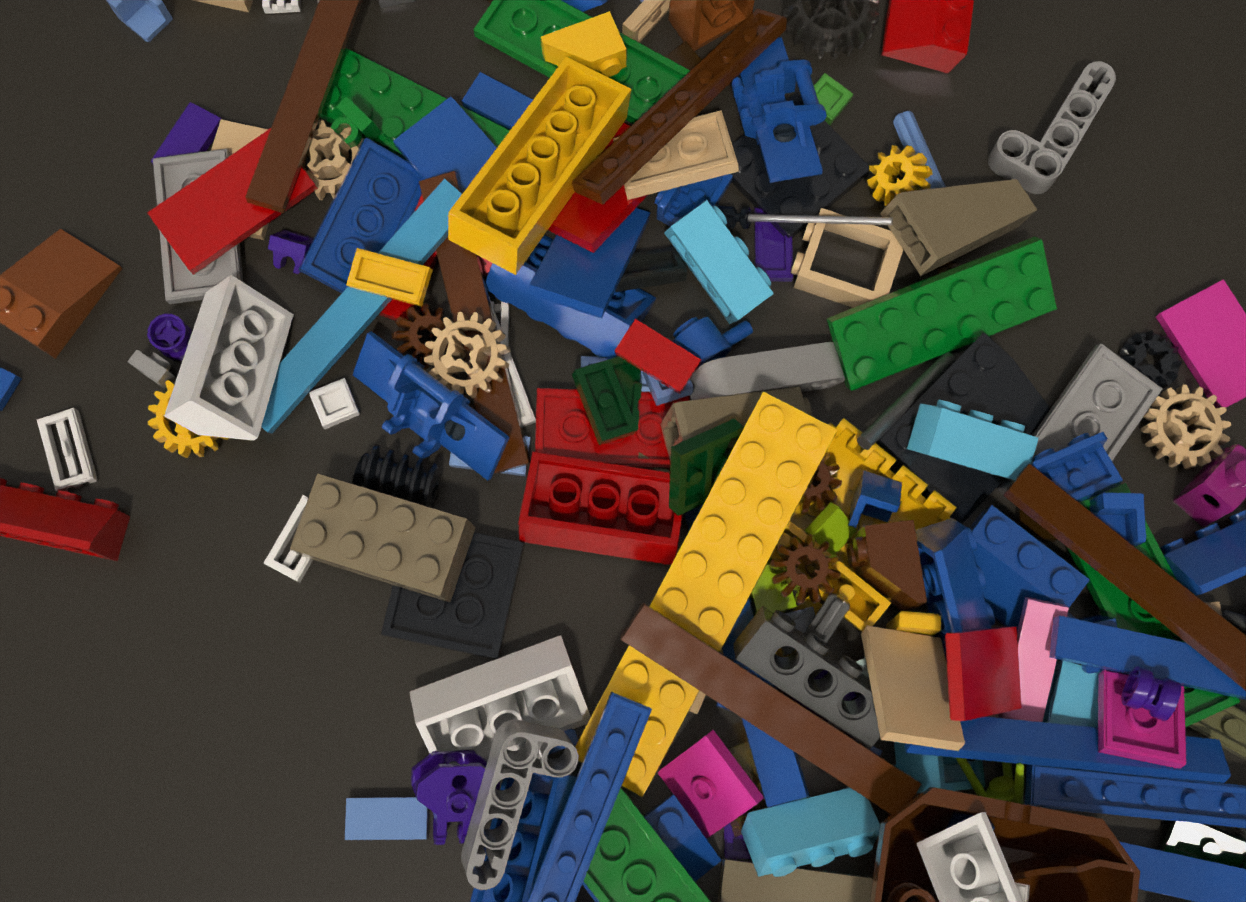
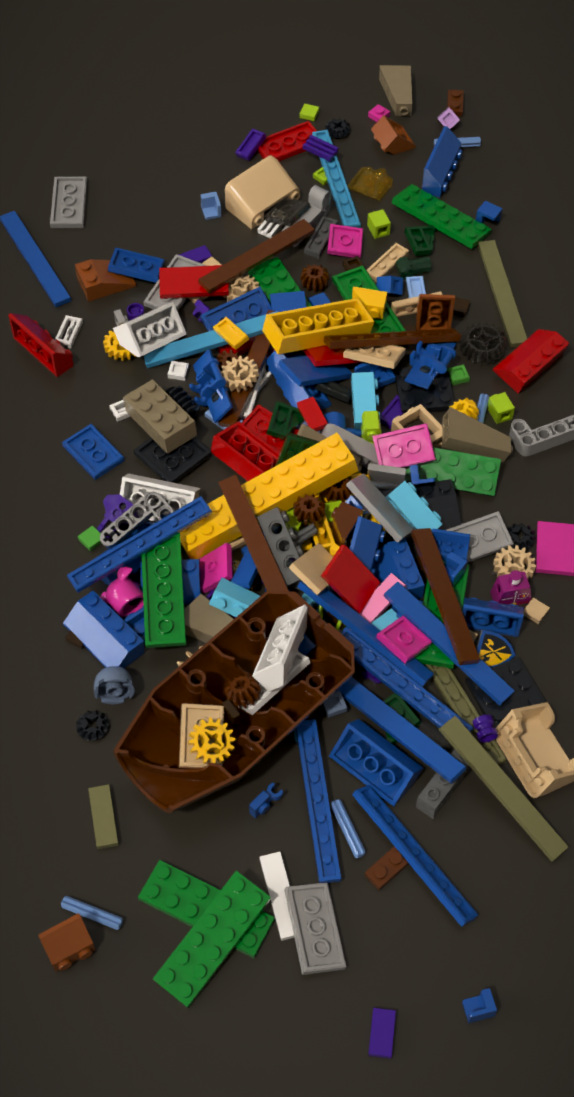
camera: 35 degrees right, 20 degrees down
(92, 228) = (135, 265): none -> blue tile
(303, 679) = (93, 451): none -> blue tile
(358, 122) = (260, 280): green tile -> none
(386, 818) = (85, 512): medium blue tile -> none
(435, 865) = (90, 538): none -> bright green tile
(454, 48) = (314, 277): none -> reddish brown gear
(745, 218) = (382, 391): flat silver piece -> none
(777, 318) = (370, 425): none -> lime brick
(869, 325) = (404, 447): none -> dark pink tile
(869, 396) = (386, 473): none -> light grey tile
(924, 483) = (380, 507): none -> light grey tile
(942, 369) = (415, 475): none -> blue panel
(948, 123) = (500, 407): none -> lime brick
(1151, 693) = (412, 626): dark purple wheel -> none

